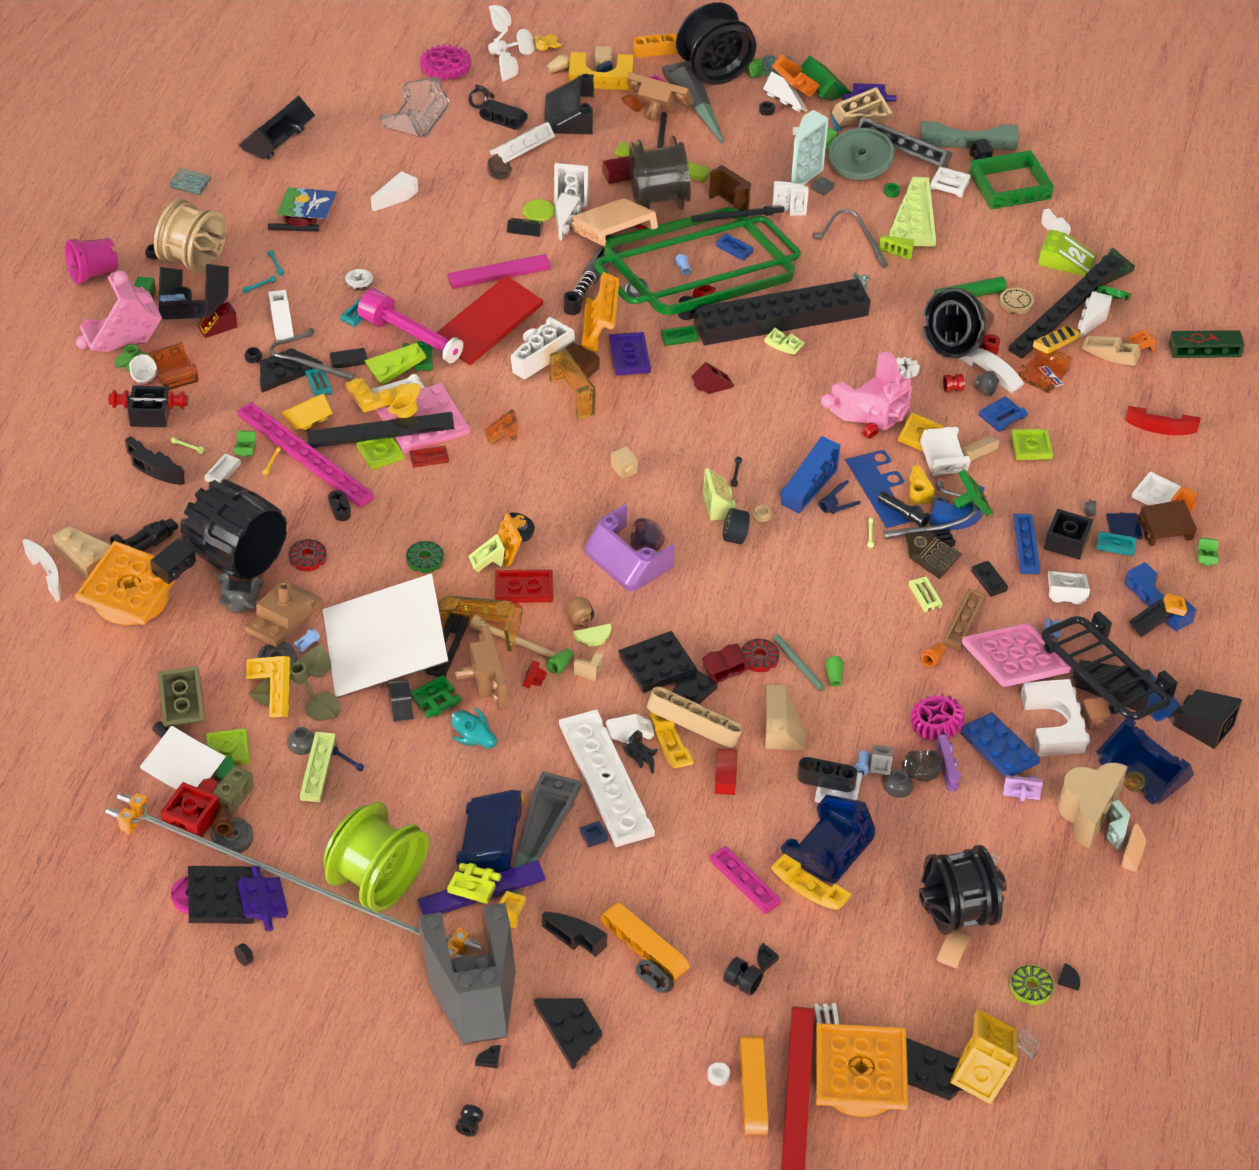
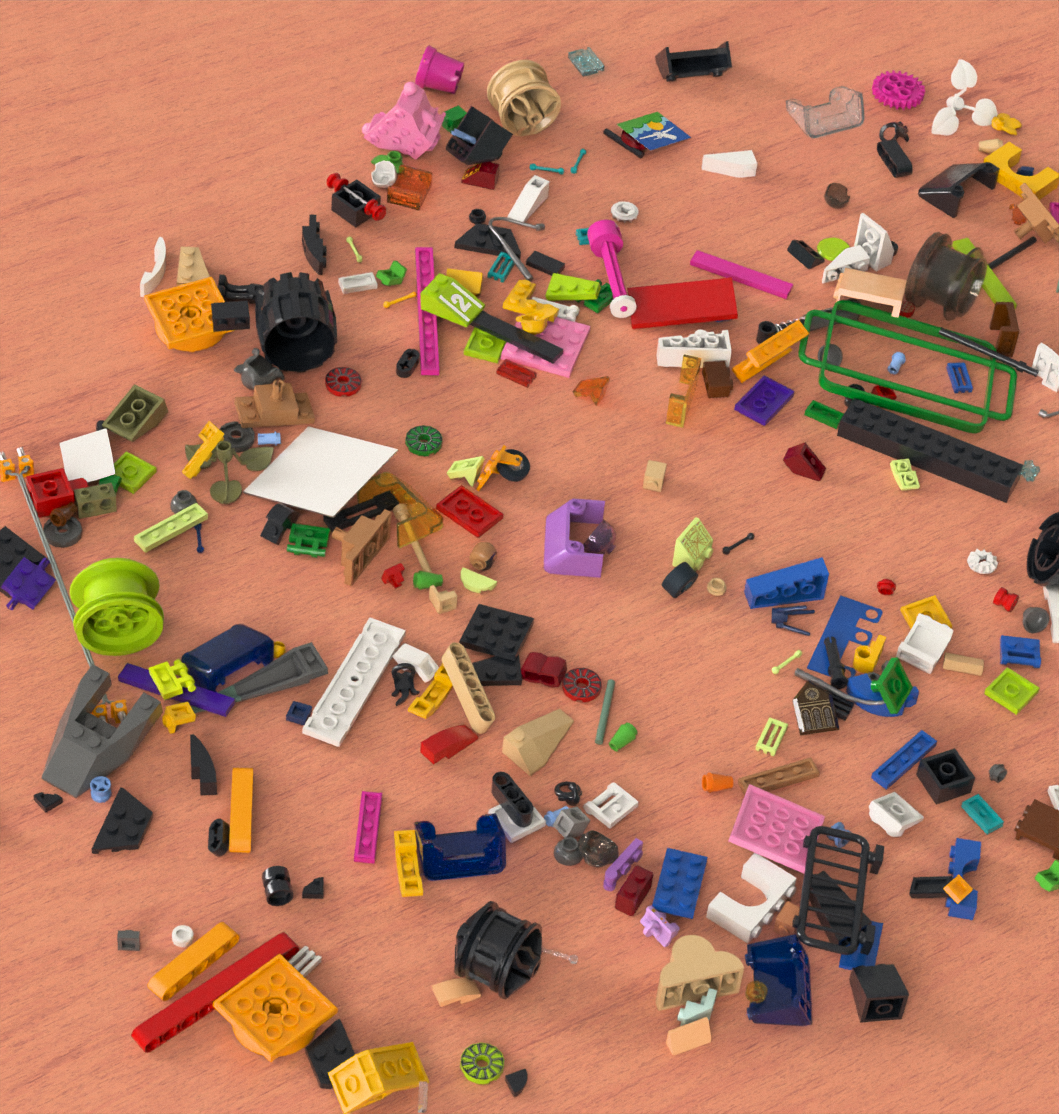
camera: 40 degrees right, 0 degrees up
(323, 432) = (450, 300): none -> lime slope
(473, 729) = (304, 579): teal animal -> none
(524, 142) = (884, 190): white fence -> none
(525, 1009) = (97, 785): none -> medium blue wheel
(602, 55) = (1037, 160): tan brick -> none
(688, 1110) = (128, 940): none -> dark grey plate
(857, 741) = (572, 797): none -> black piece
(878, 401) = (913, 570): bright pink piece -> none
(893, 726) = (613, 810): none -> white plate
(936, 712) = (655, 826): dark pink gear -> none
(978, 774) = (634, 890): none -> dark red brick
(989, 578) = (840, 763): black plate -> none
(1124, 524) = (1010, 807): clear blue piece -> none

